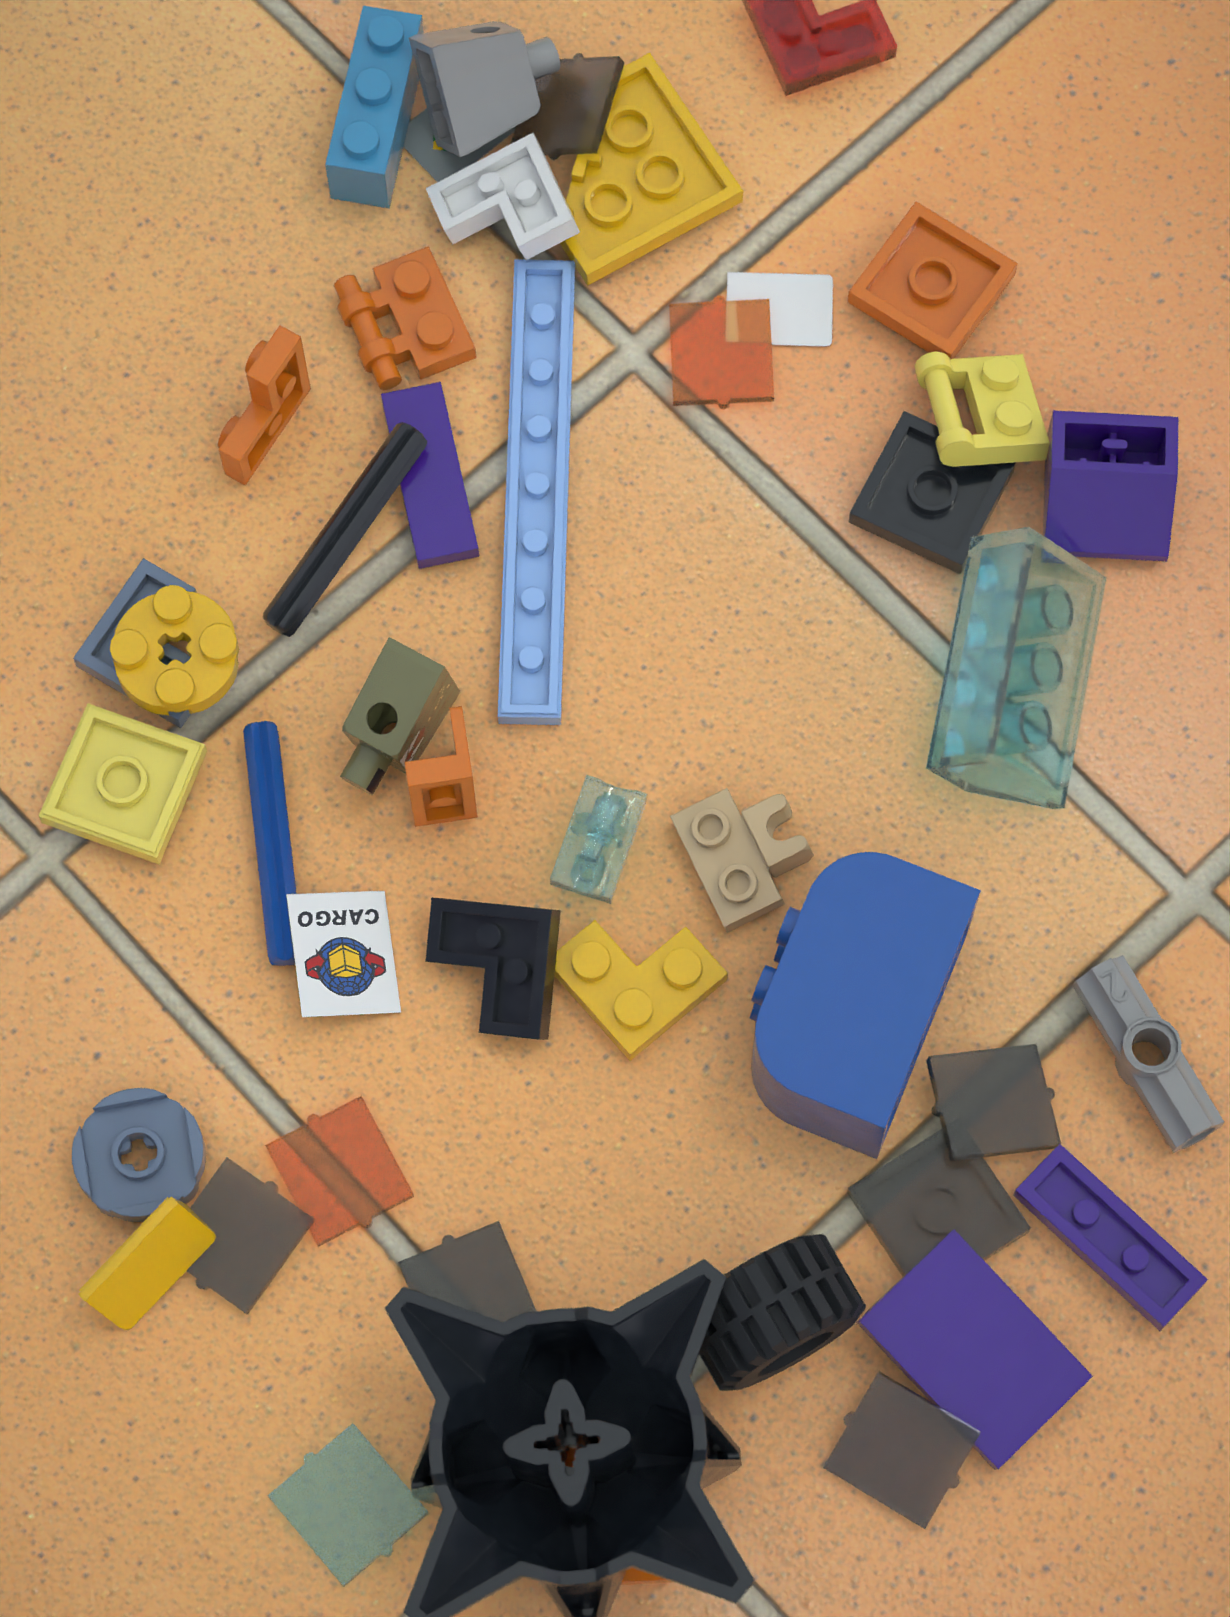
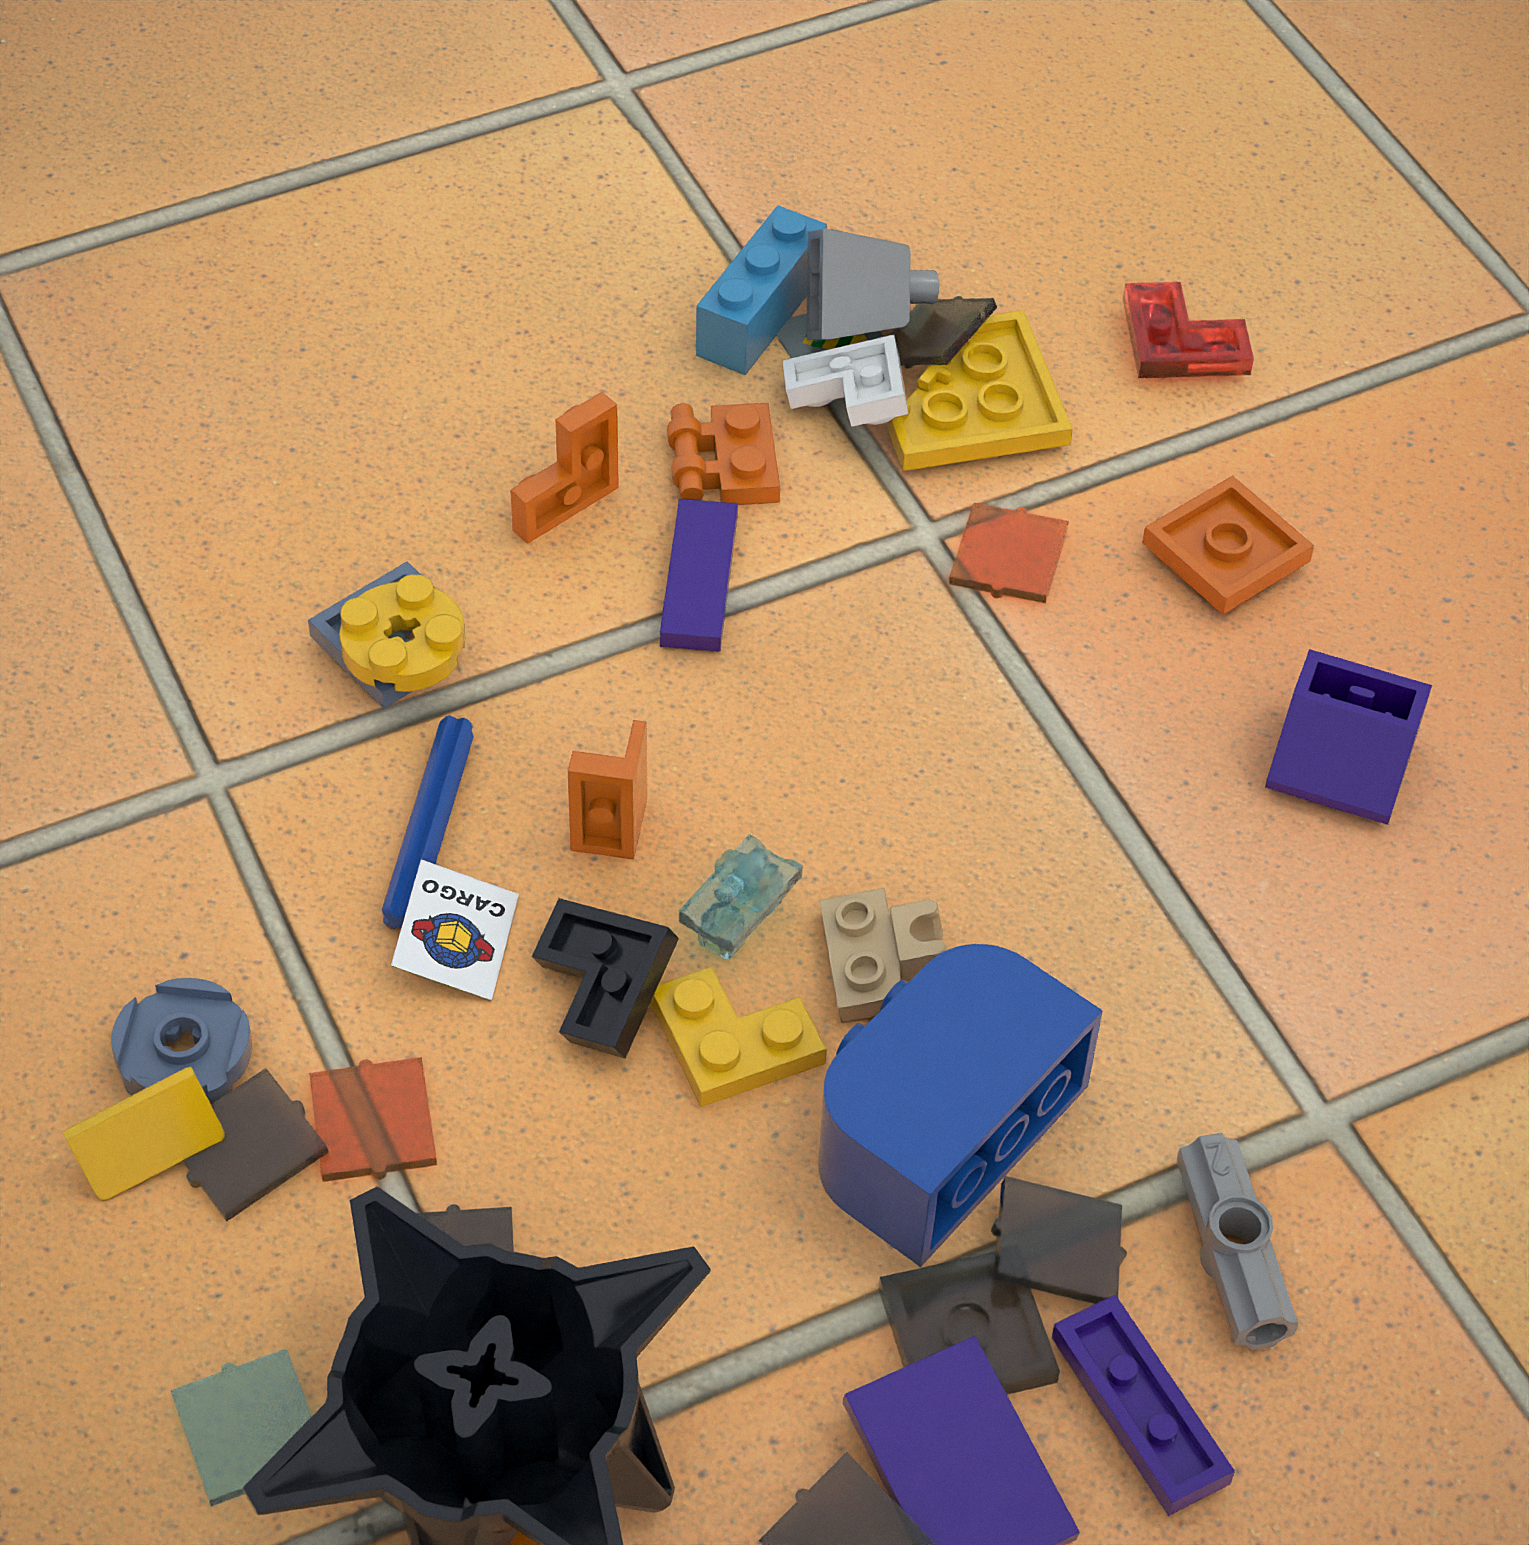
camera: 15 degrees right, 20 degrees down
(123, 783) = (309, 734): light yellow plate -> none
(344, 529) = (601, 589): black axle -> none
(399, 690) = (585, 716): olive torso -> none
(537, 493) = (790, 620): light blue tile -> none
(778, 1312) = (755, 1350): black tyre -> none
(798, 304) = (1092, 537): white sticker -> none
(924, 502) = (1172, 706): black plate -> none
(1000, 404) = (1261, 647): light yellow plate -> none
(1017, 669) = (1208, 870): clear light blue slope -> none

